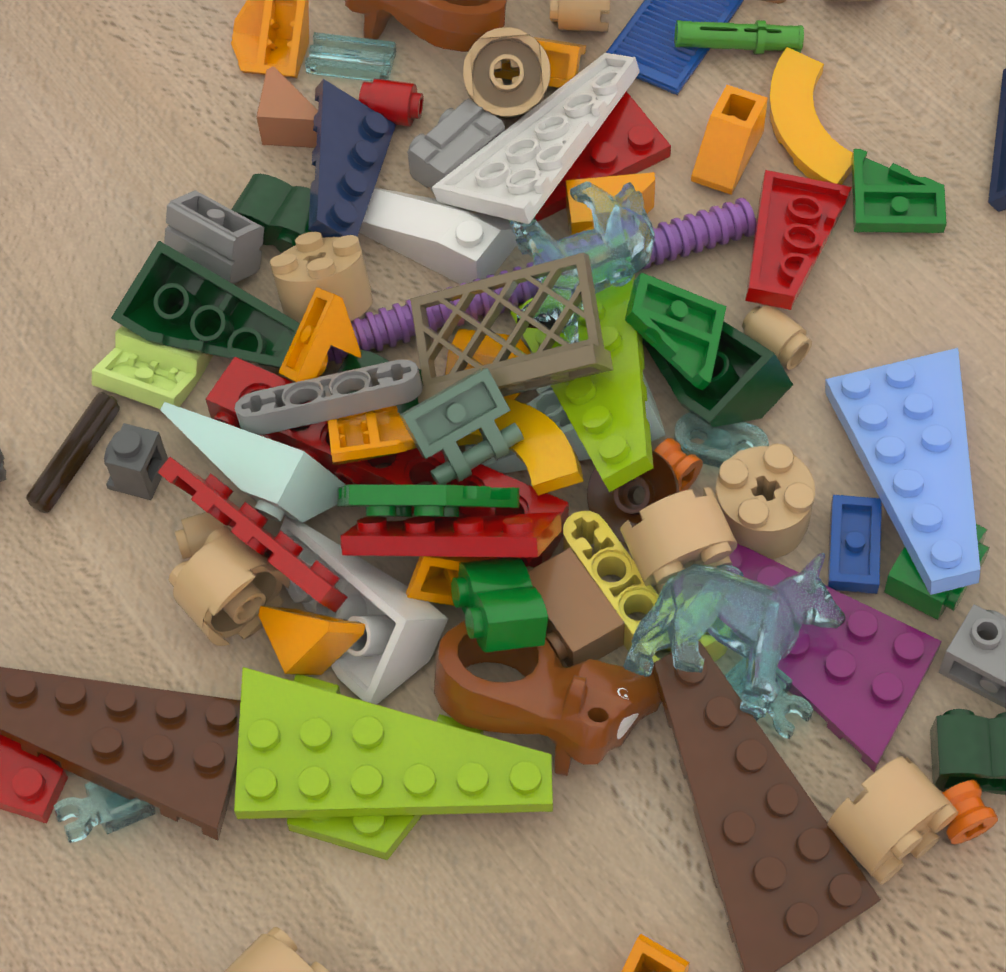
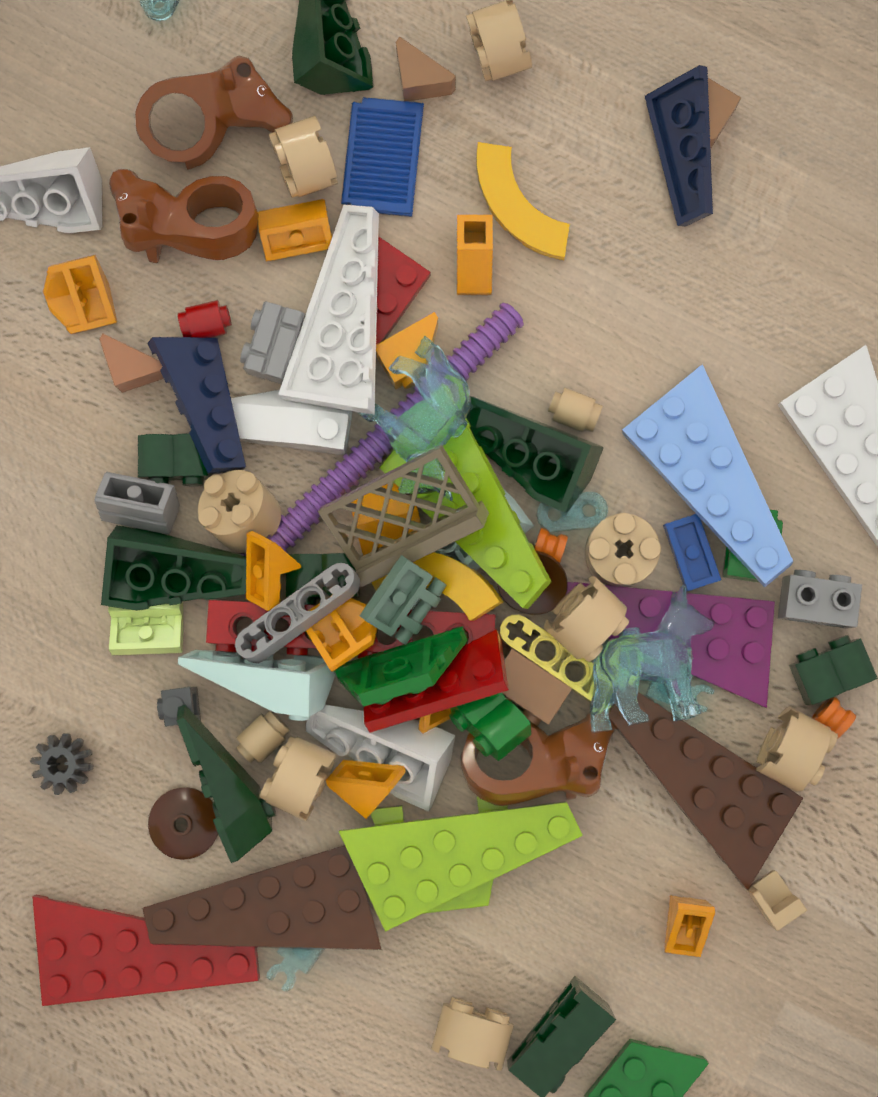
camera: 25 degrees left, 25 degrees up
(68, 618) = (198, 813): none -> reddish brown dish
(73, 452) = (128, 713): dark brown axle -> none
(133, 584) = (239, 812): none -> dark green wedge
(248, 526) = (304, 745): red wing -> none
(352, 53) = (146, 274): clear light blue tile -> none
(487, 57) = (273, 252): tan brick -> none
(678, 326) = (514, 450): green wing -> none
(754, 37) = (474, 133): bright green pin -> none
(790, 234) = (551, 318): red wing -> none
(894, 199) = (610, 253): green wing -> none

